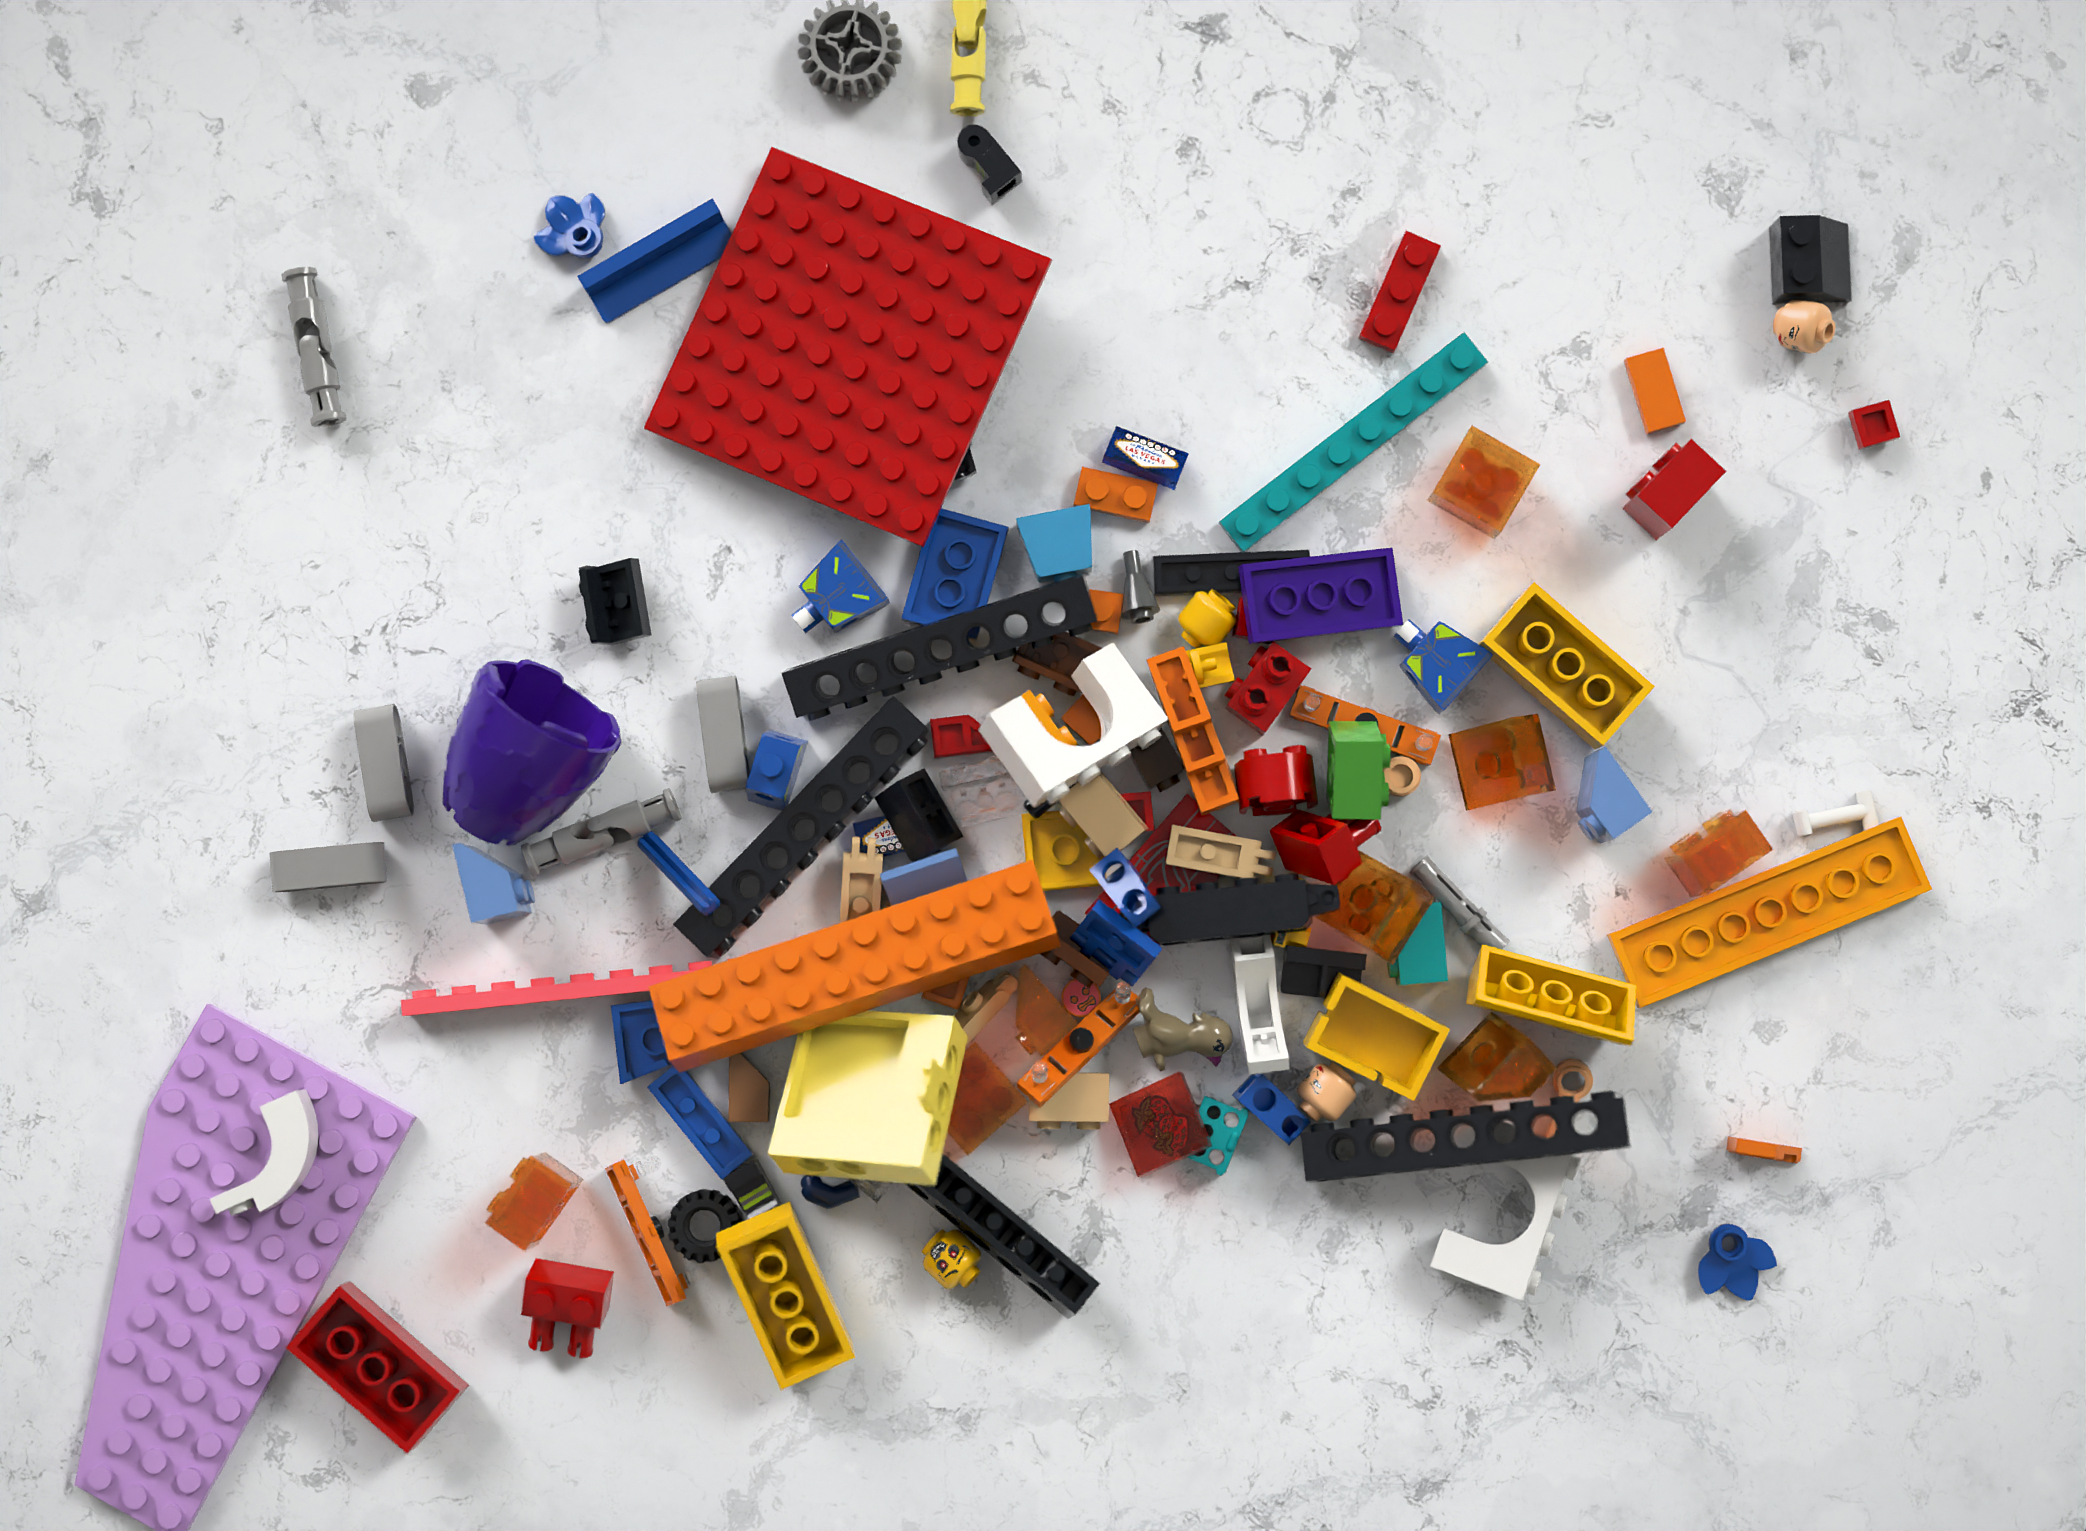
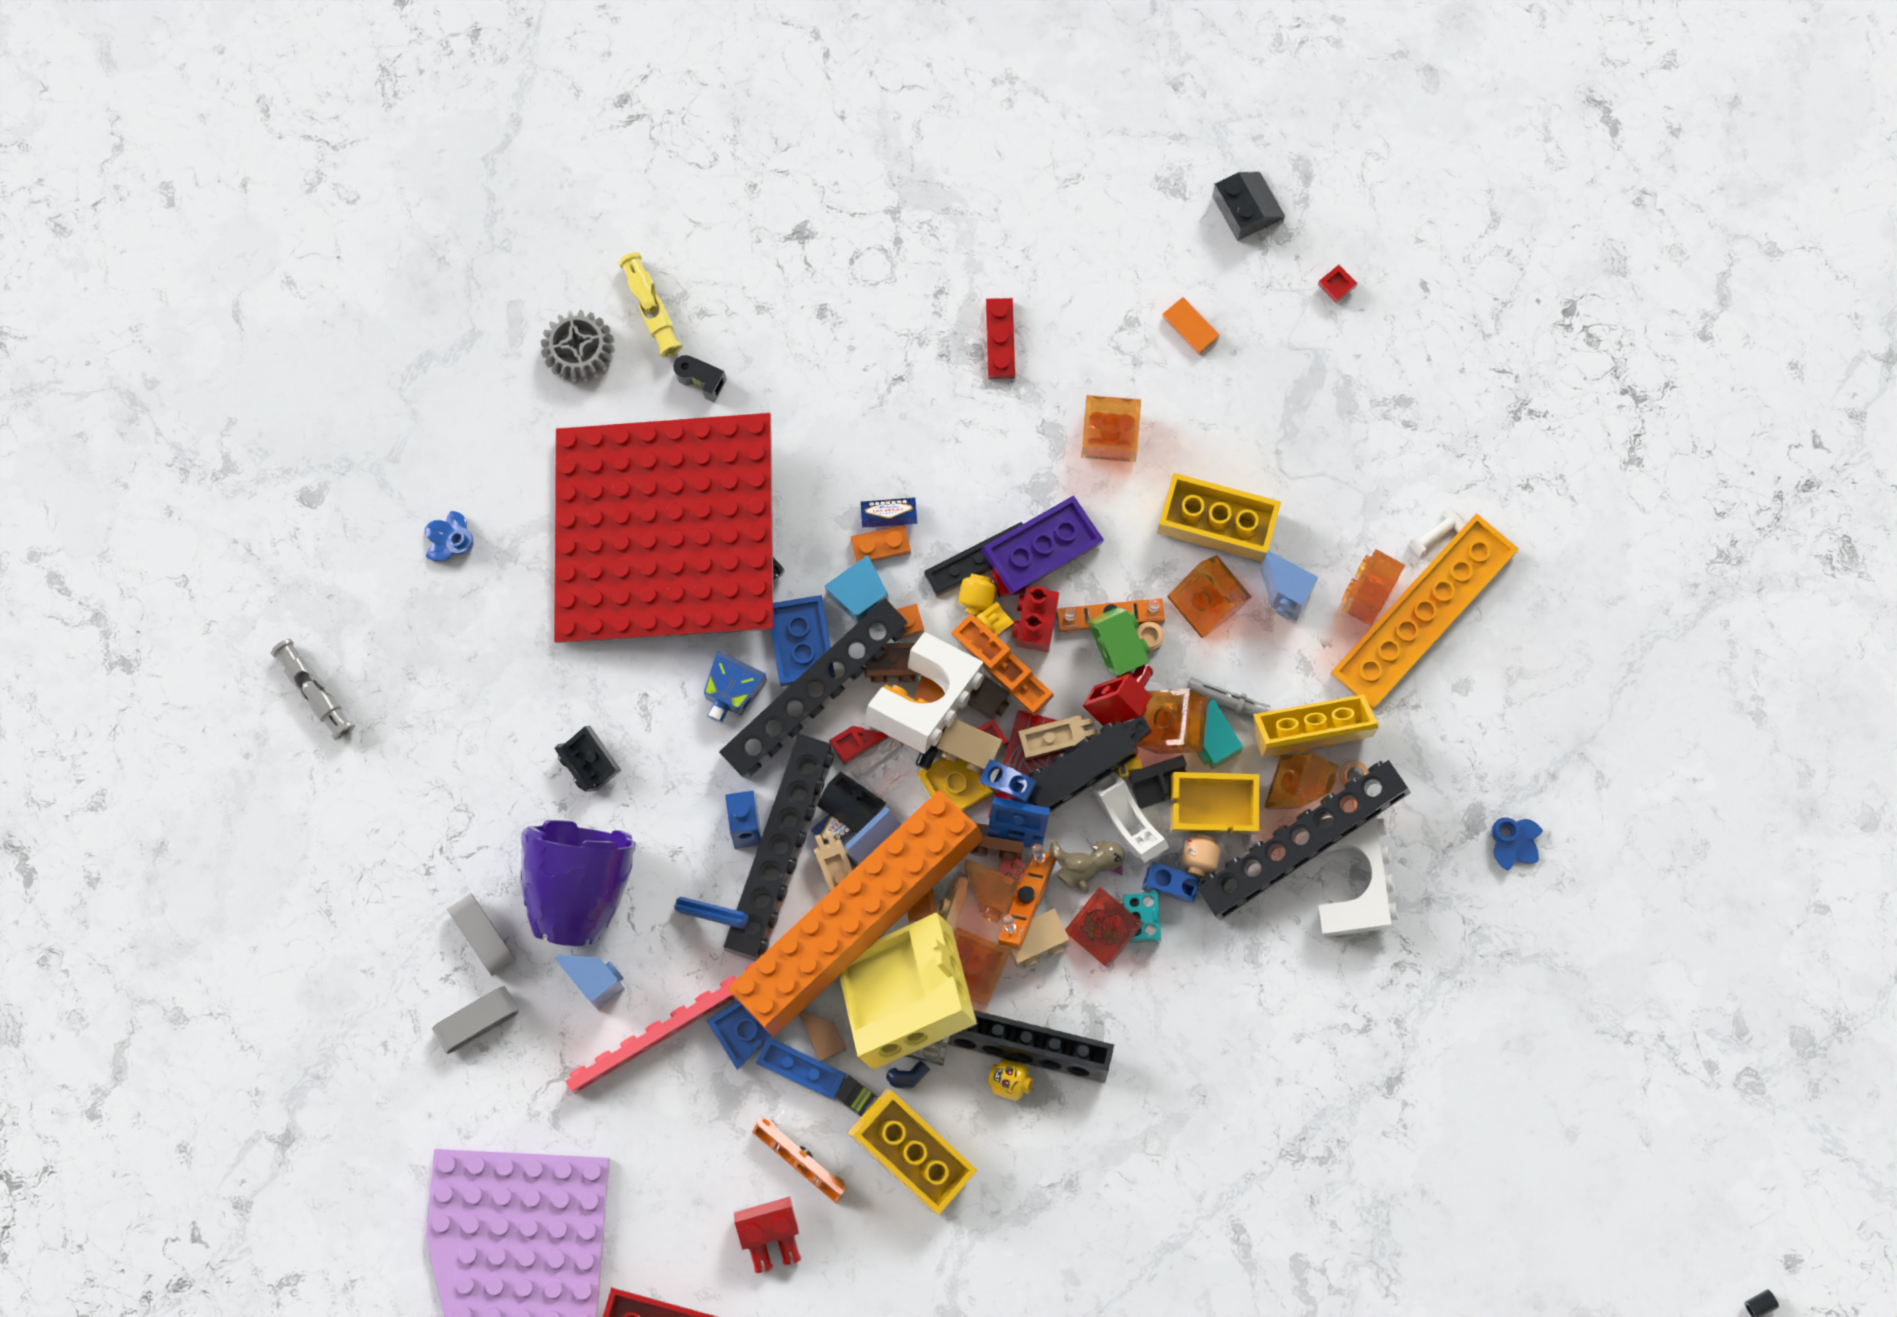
camera: 25 degrees left, 10 degrees down
(293, 1151) = (539, 1220): white arch -> none
(533, 1200) = (715, 1170): clear orange brick -> none
(629, 823) = (631, 927): light grey piece -> none
(657, 261) = (514, 534): blue panel -> none
(680, 1223) = (818, 1141): black tyre -> none
(723, 733) = (698, 811): light grey beam -> none
(1138, 598) = (928, 603): dark grey cone -> none
(1275, 781) = (1071, 673): red brick -> none
(1353, 442) = (1016, 444): teal plate -> none
(1440, 661) = (1139, 552): blue torso -> none
(1679, 483) = (1230, 377): red brick -> none
(1764, 1150) = (1497, 761): orange tile -> none
(1804, 326) = (1263, 243): light nougat head -> none

